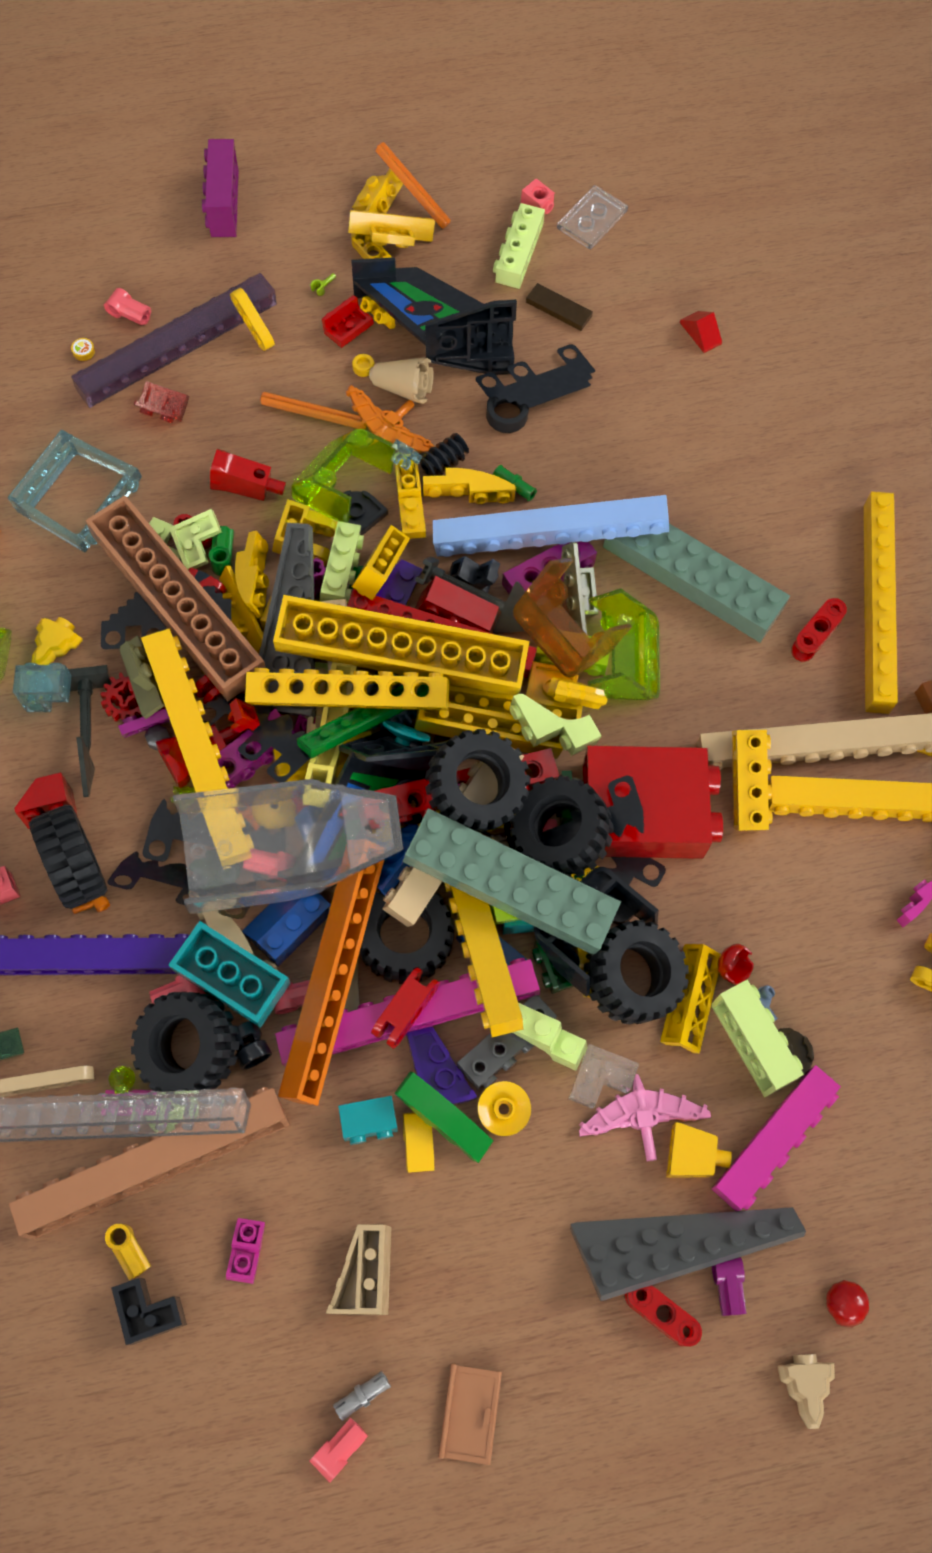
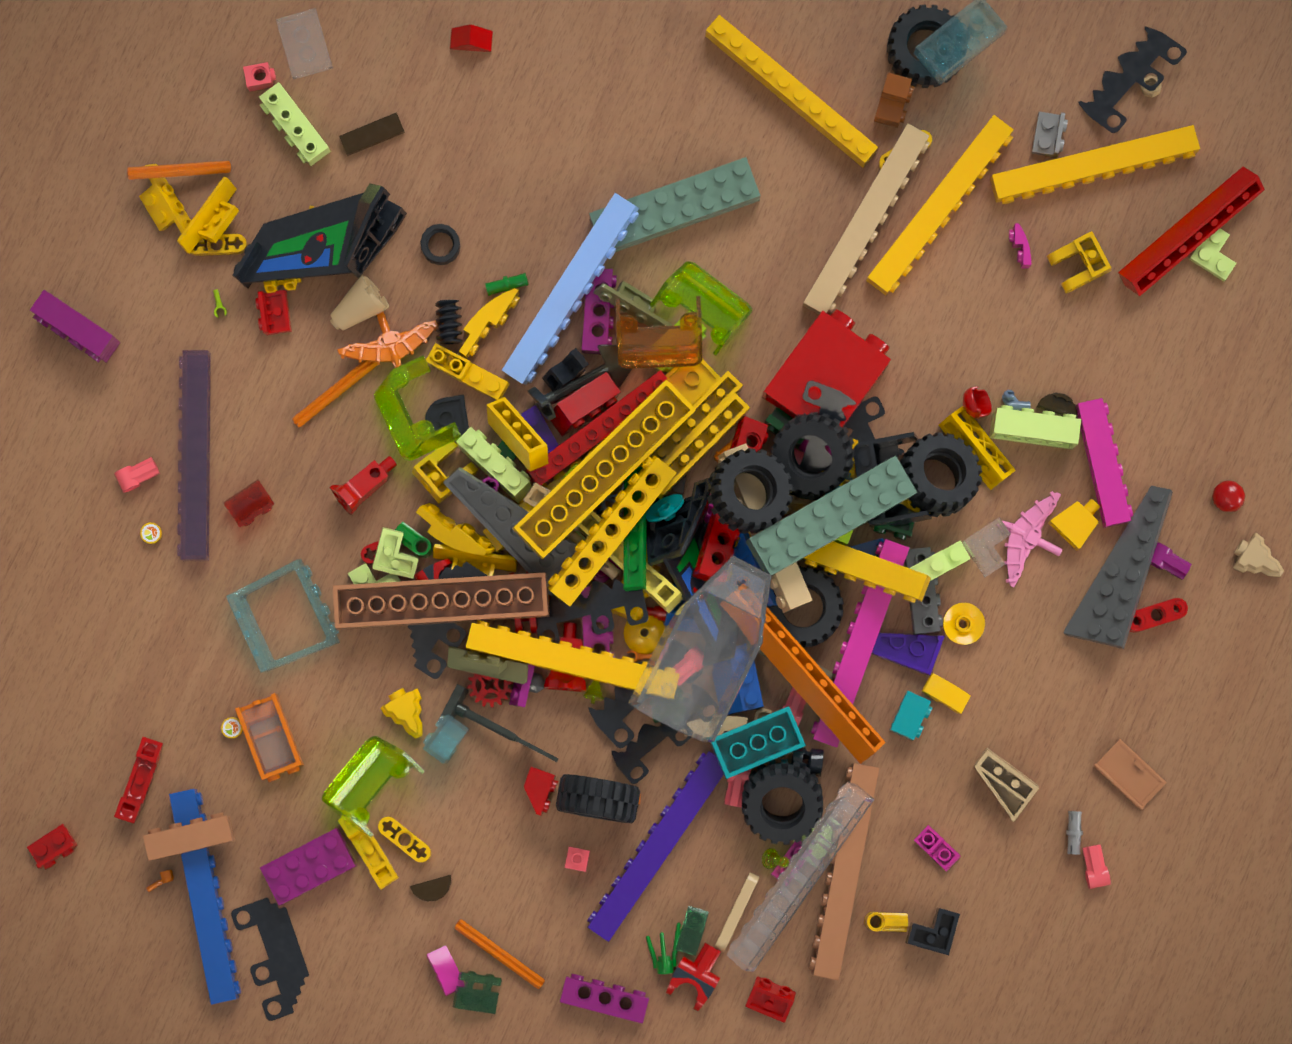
camera: 50 degrees left, 15 degrees up
(243, 716) = (574, 613): red tile -> none
(252, 319) = (224, 386): yellow beam -> none
(362, 364) = (318, 325): yellow tile -> none
(405, 452) = (434, 351): clear light blue tile -> none
(405, 1008) = (861, 643): red piece -> none
(443, 1116) = (944, 666): green slope -> none
(542, 725) = (727, 411): yellowish green arch -> none
(544, 387) = (441, 201): black piece -> none
(576, 693) = (715, 368): yellow rock -> none
(751, 780) = (861, 294): yellow brick -> none
(826, 619) = (778, 142): red piece -> none

